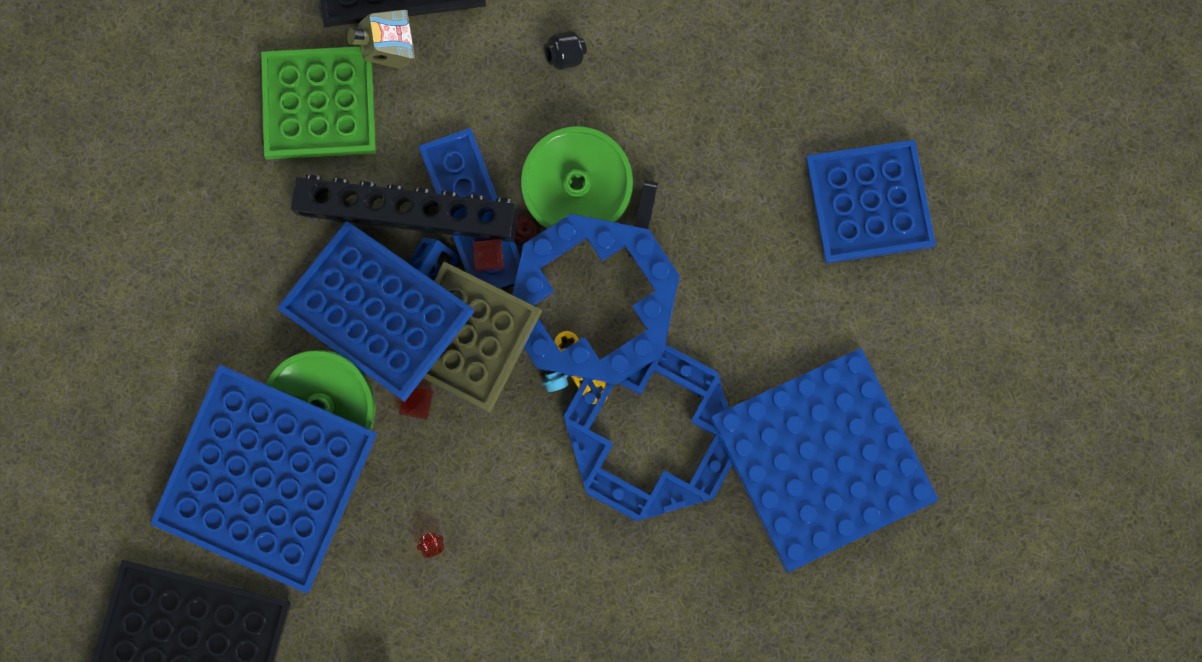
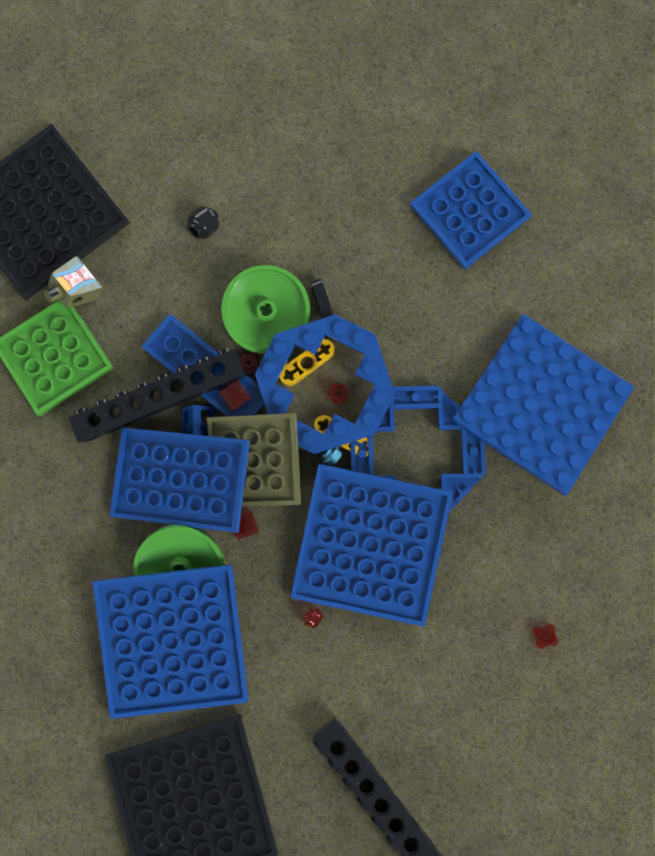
camera: 25 degrees left, 5 degrees up
(541, 502) = (371, 545): none -> blue plate
(597, 274) = (323, 357): none -> yellow beam
(609, 314) = (338, 387): none -> clear red plate

